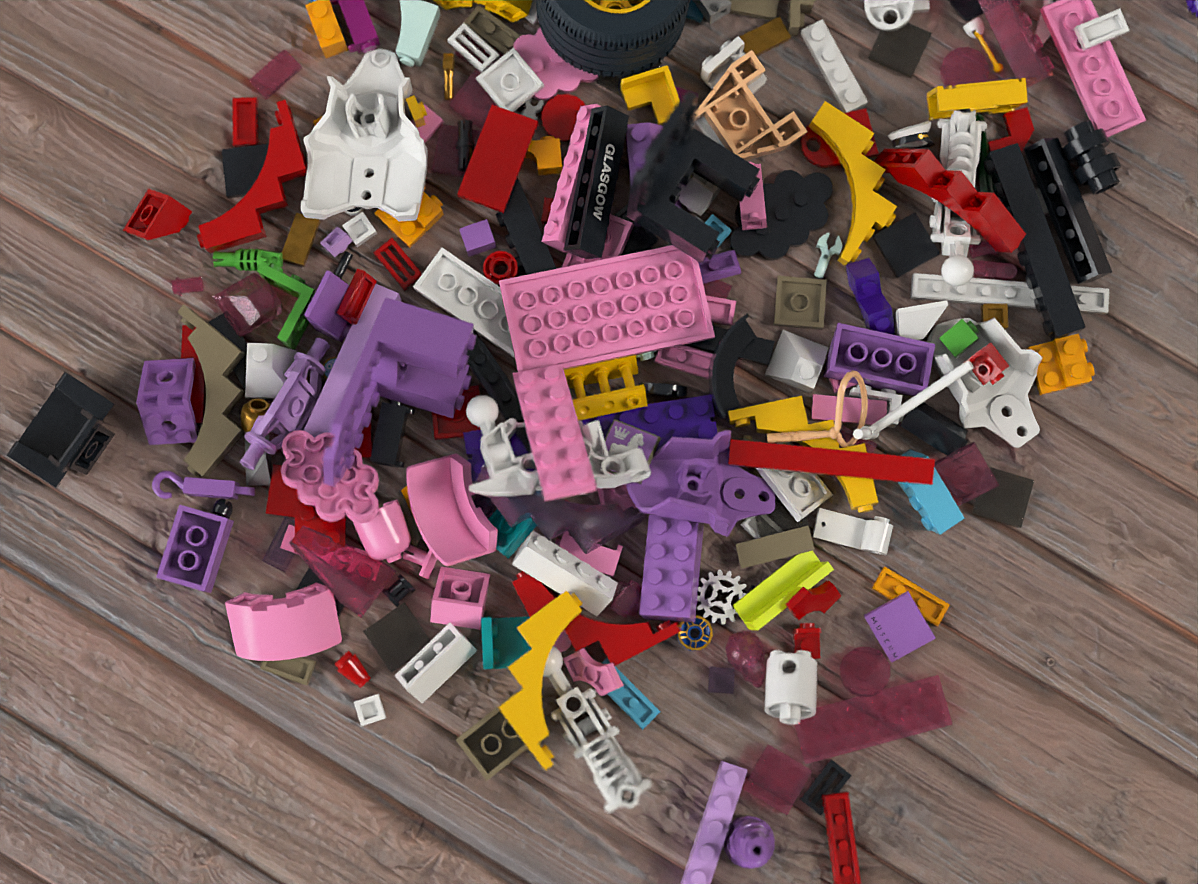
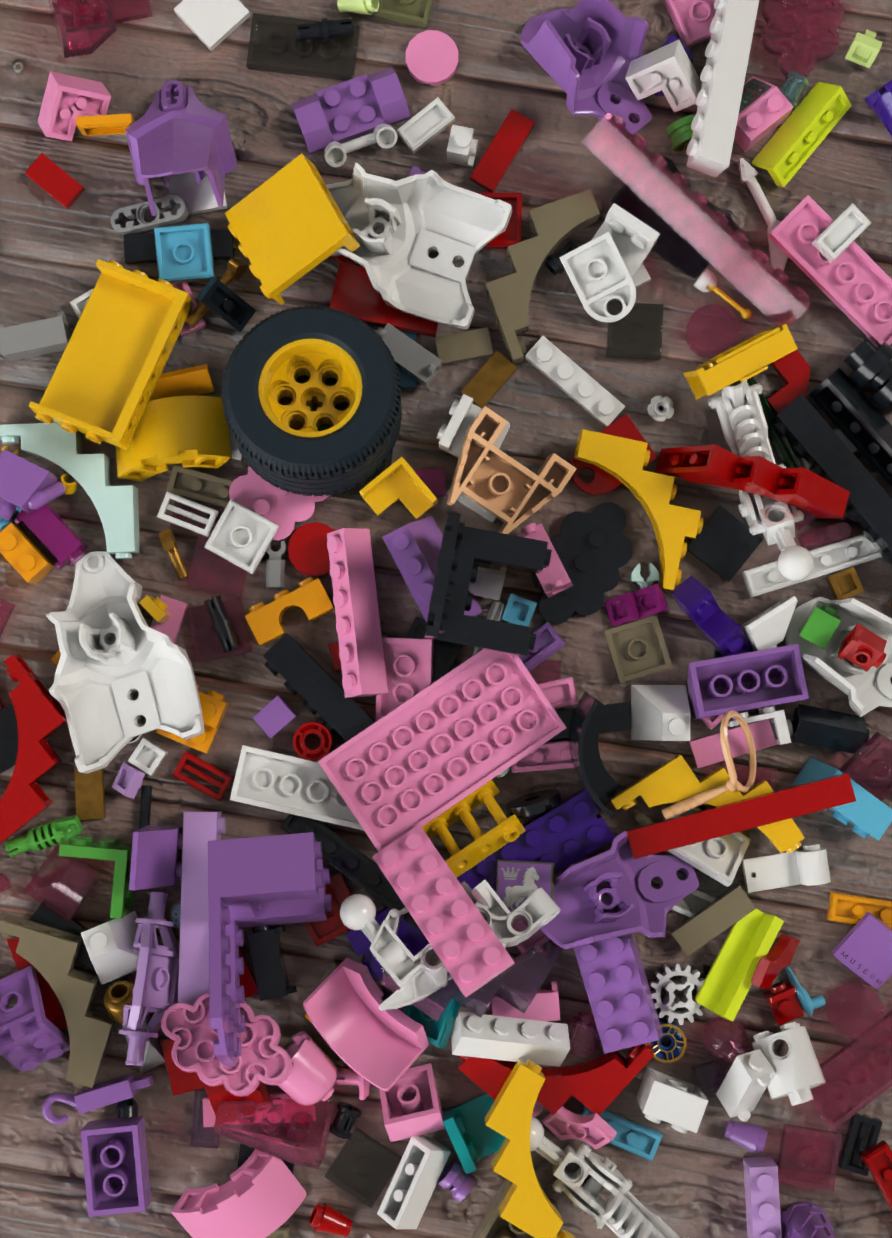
camera: 20 degrees left, 5 degrees up
(356, 296) = (175, 837): red tile -> none
(471, 678) = (456, 1181): none -> medium lavender wheel
(497, 158) = (263, 628): red tile -> none
(596, 182) = (377, 614): black brick -> none
(680, 680) = (671, 1101): none -> white brick
(731, 739) = (746, 1135): none -> medium lavender cone
(747, 689) = (745, 1084): none -> white brick
(811, 265) = (636, 605): none -> magenta slope
(825, 643) = (803, 997): none -> medium azure bar
(872, 431) = (767, 756): white bar -> none
(896, 121) = (655, 413): none -> white plate
(912, 136) = (685, 425): piece -> none

